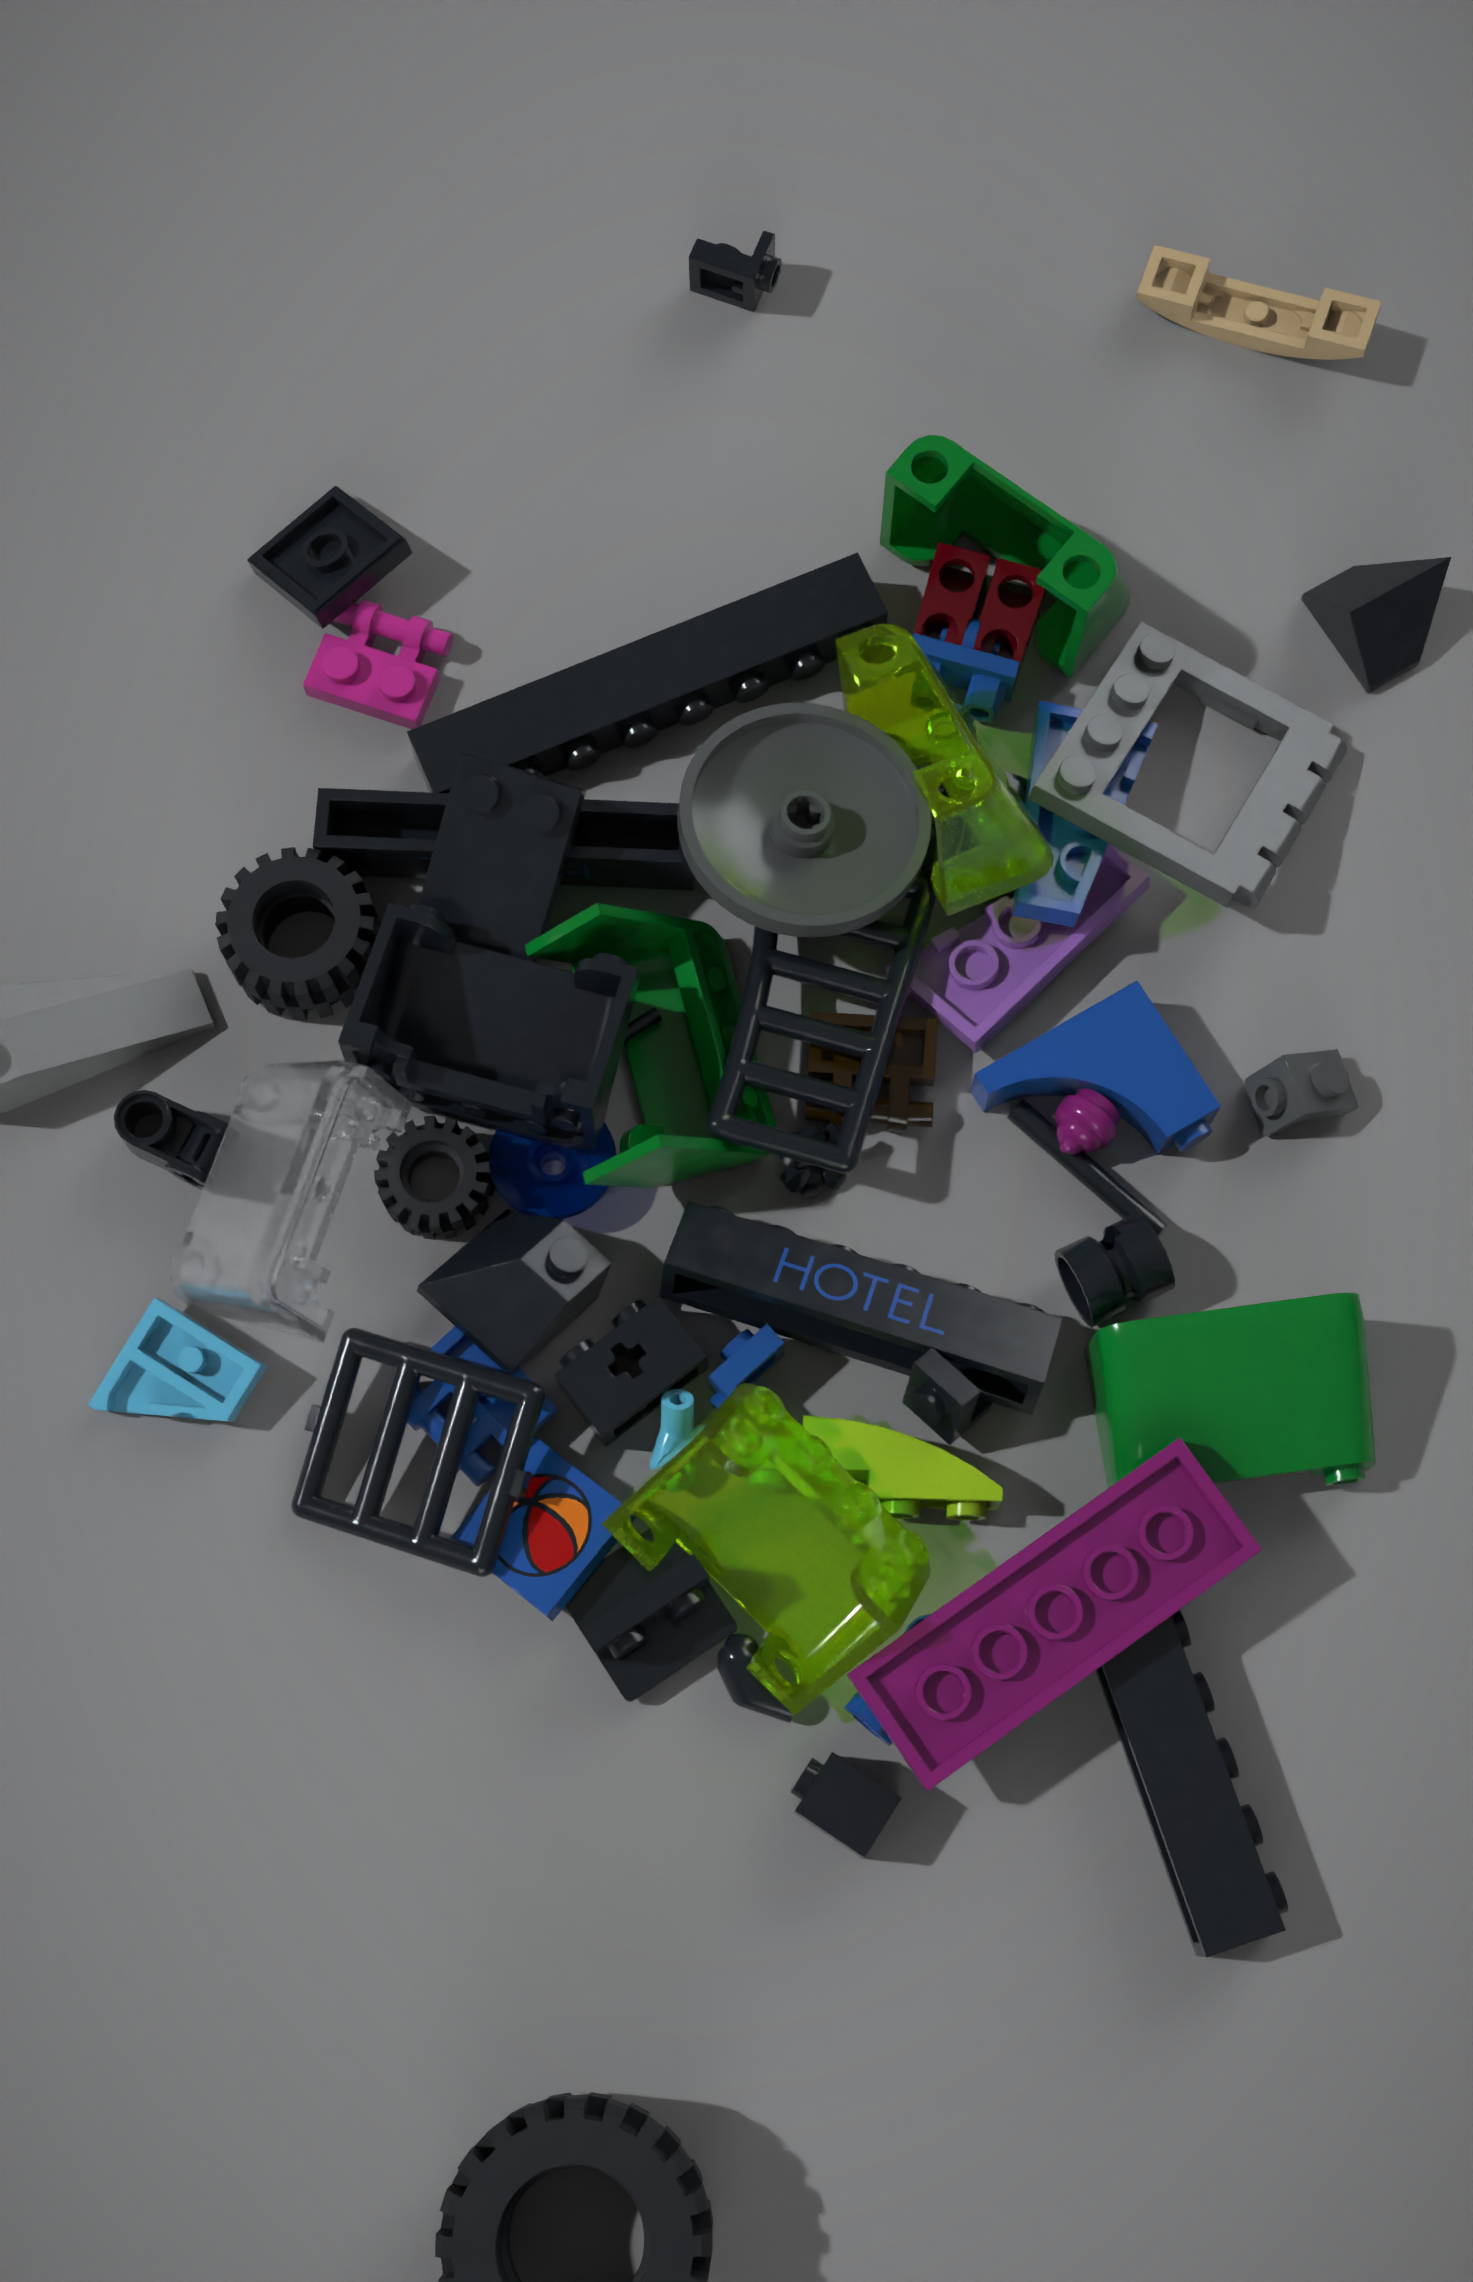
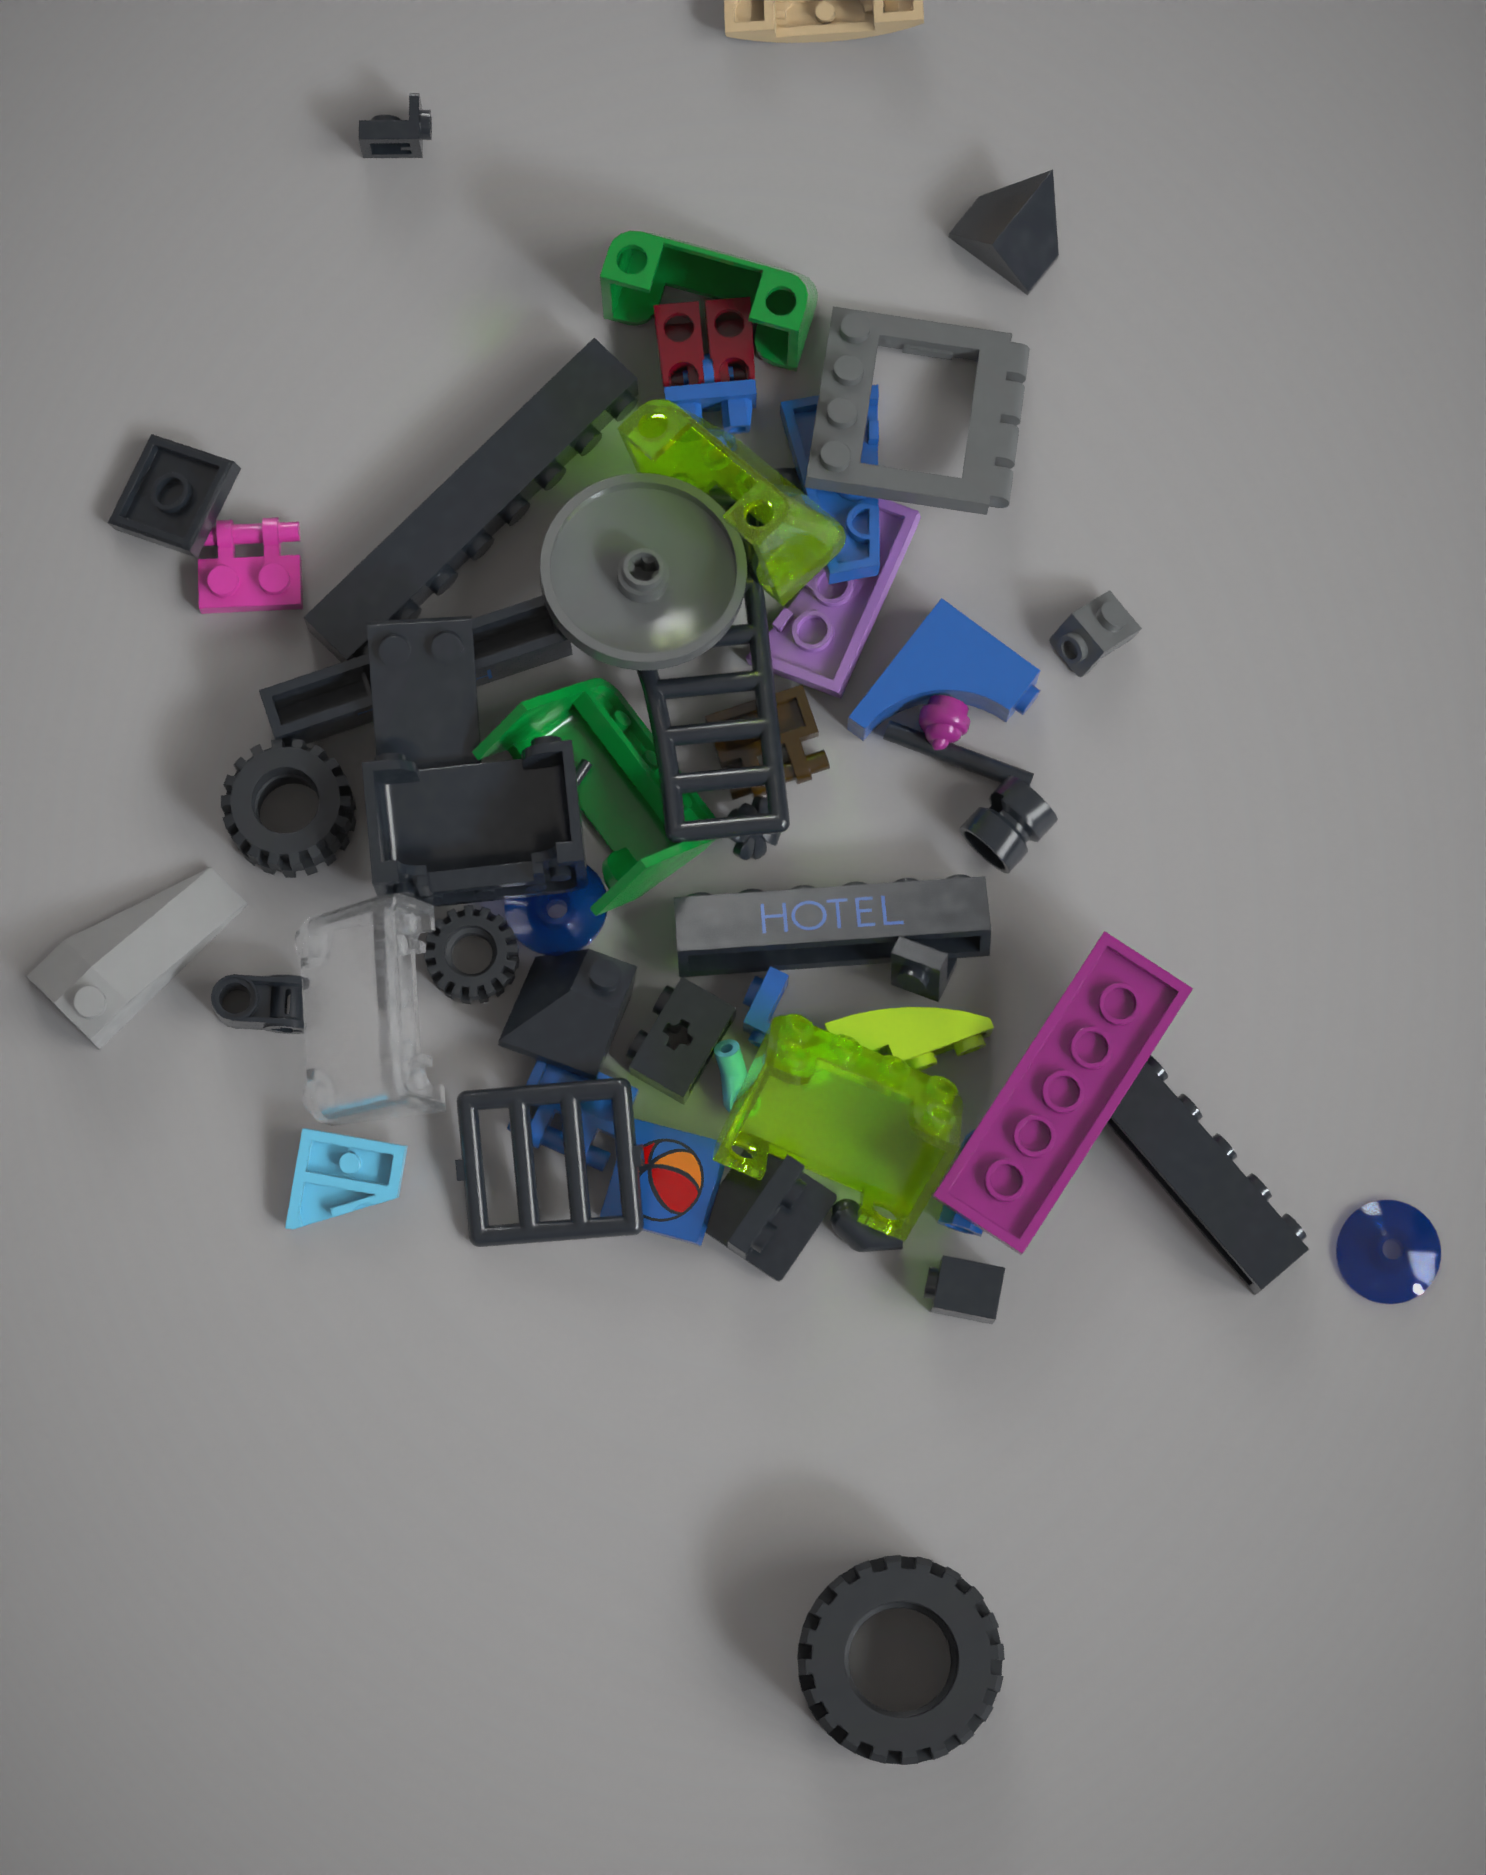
camera: 25 degrees left, 5 degrees up
(1241, 1388) = (1133, 878): green windscreen -> none
(1348, 1980) = (1362, 1256): none -> clear blue dish

